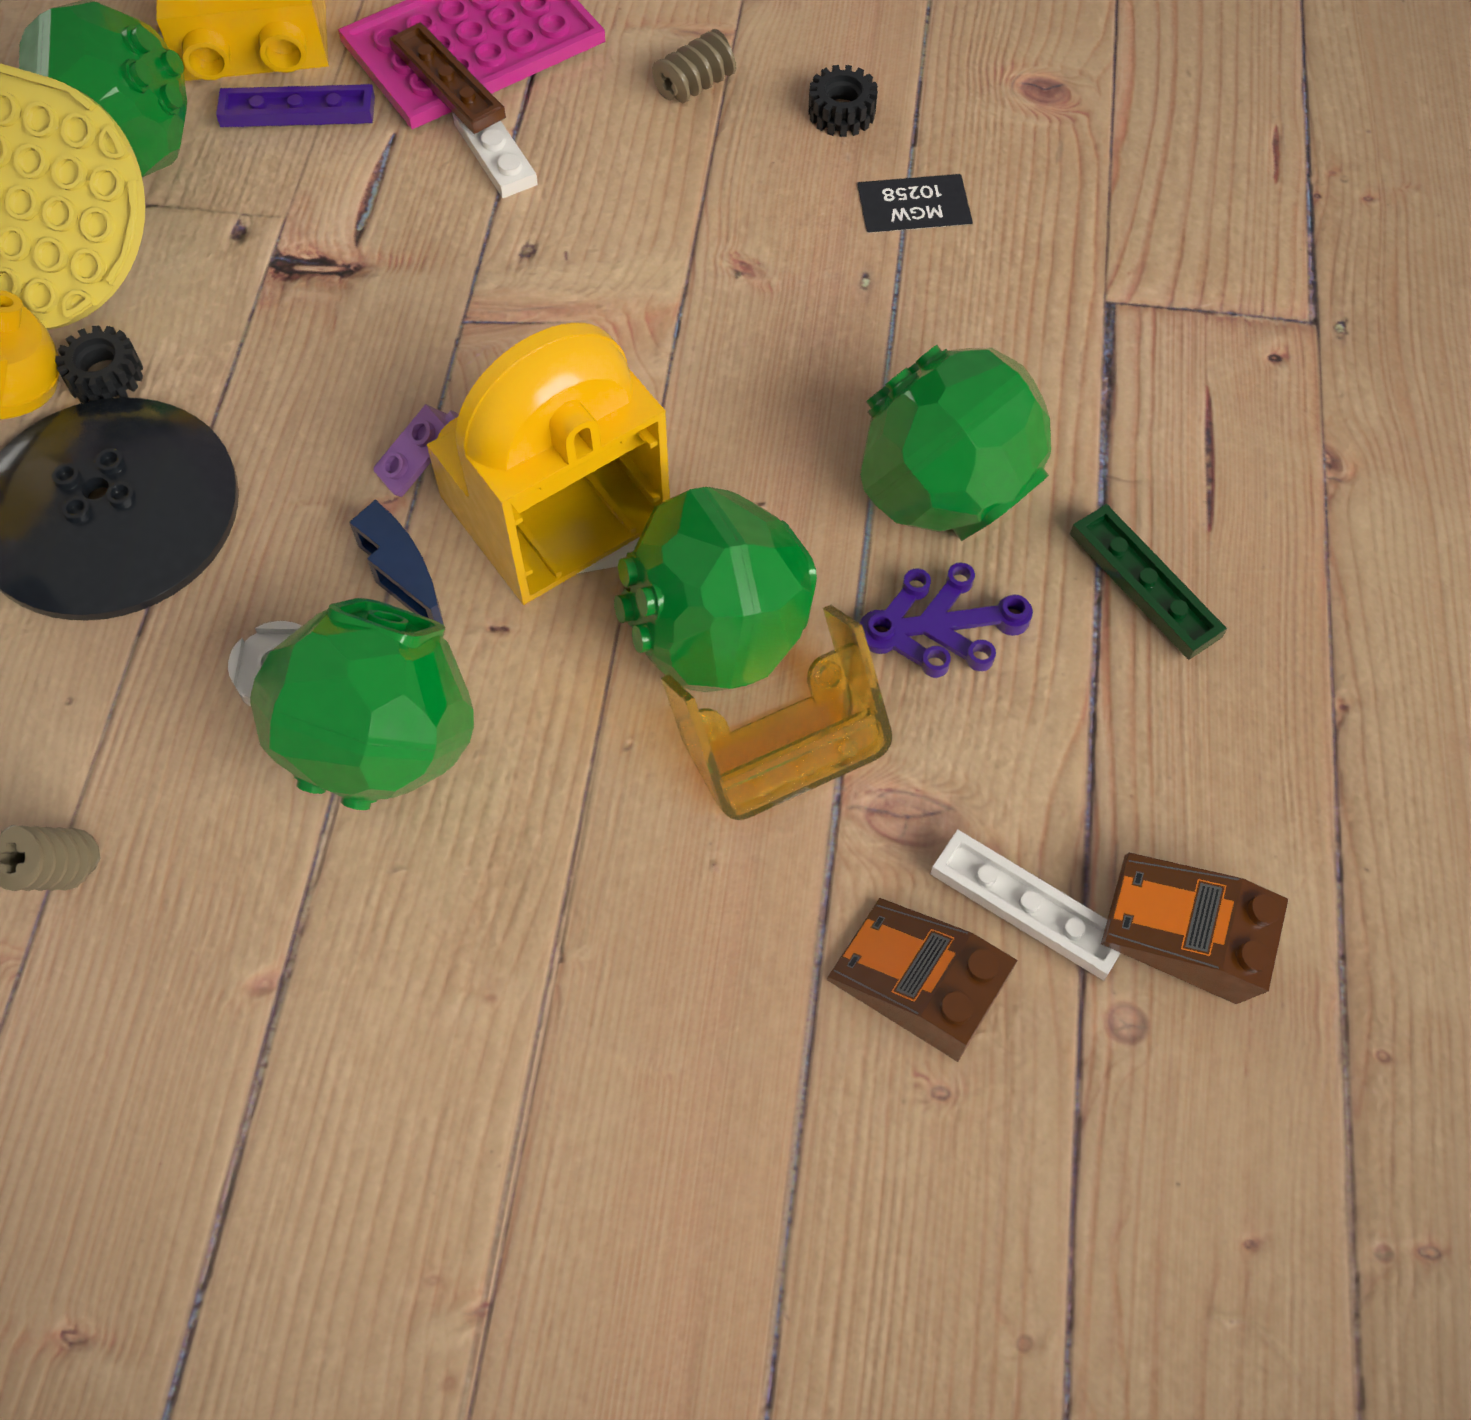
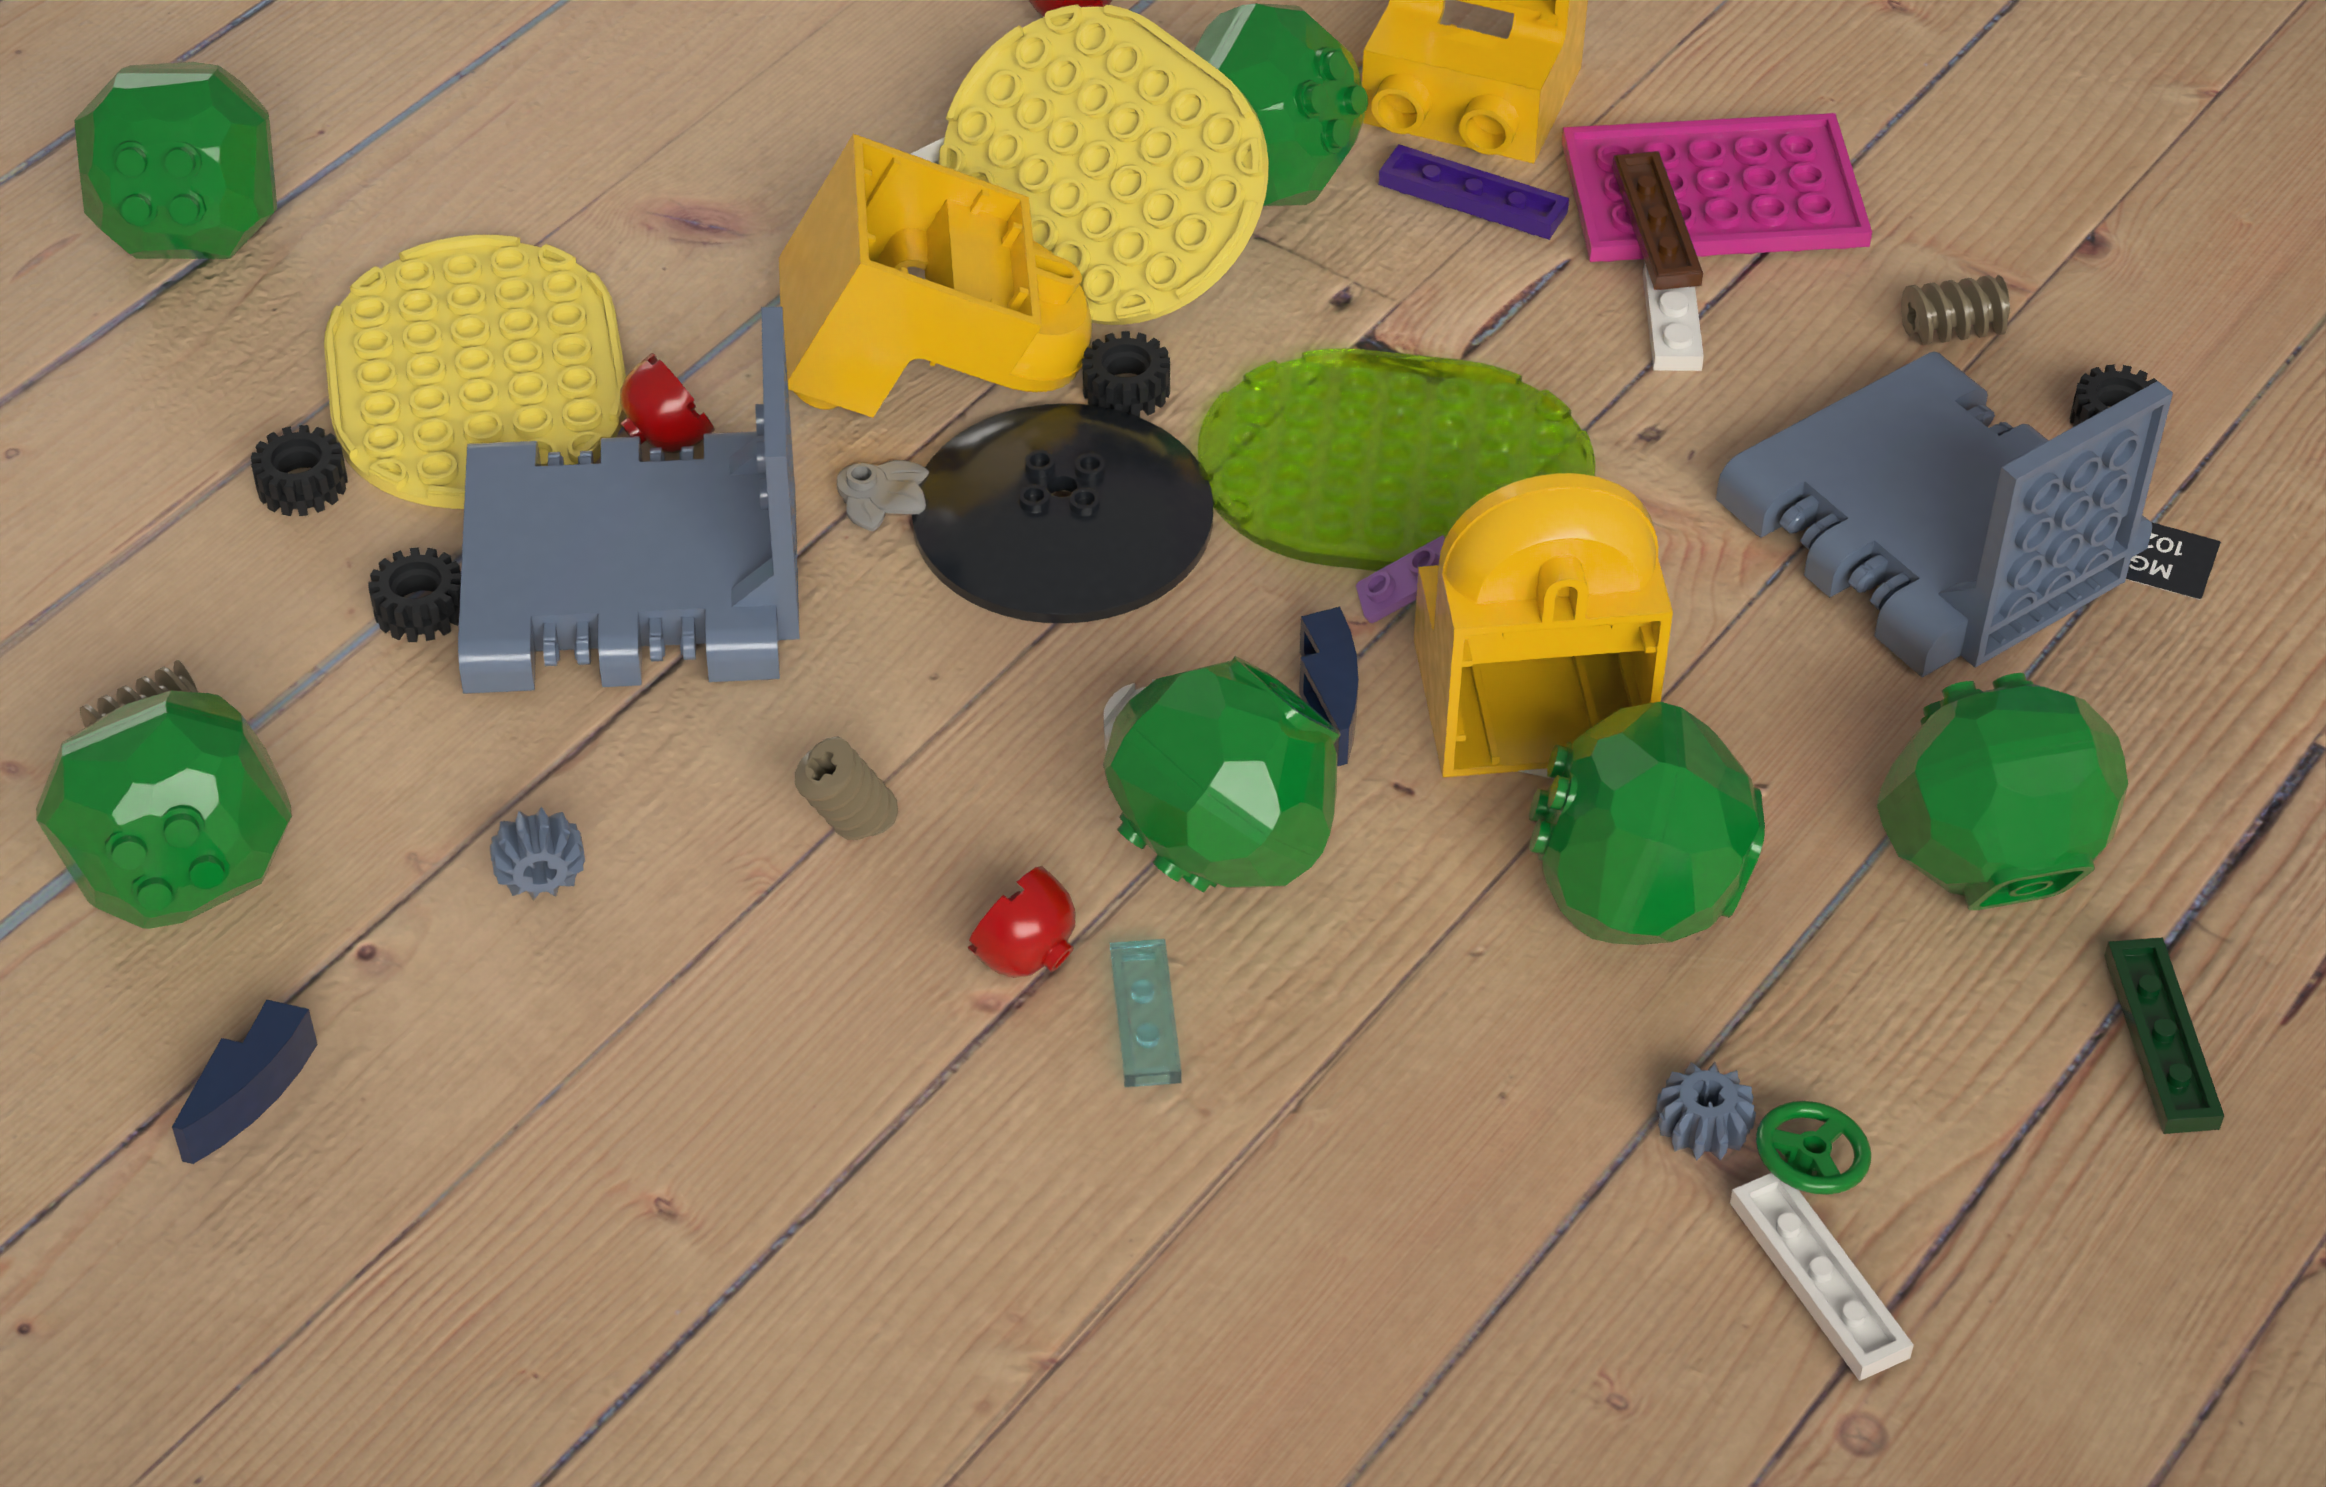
camera: 30 degrees right, 15 degrees down
(265, 911) = (1027, 928): none -> red cylinder
(343, 352) = (1375, 450): none -> clear neon green tile
(398, 934) = (1145, 1013): none -> clear light blue tile
(779, 226) = (1953, 519): none -> sand blue bracket
(797, 746) = (1654, 1025): clear yellow windscreen -> none
(870, 823) = (1705, 1111): none -> sand blue gear
(923, 975) = (1666, 1288): reddish brown slope -> none
(940, 624) = (1830, 960): dark purple plant -> none
(964, 822) = (1807, 1155): none -> green piece
(1197, 926) = (1988, 1363): reddish brown slope -> none

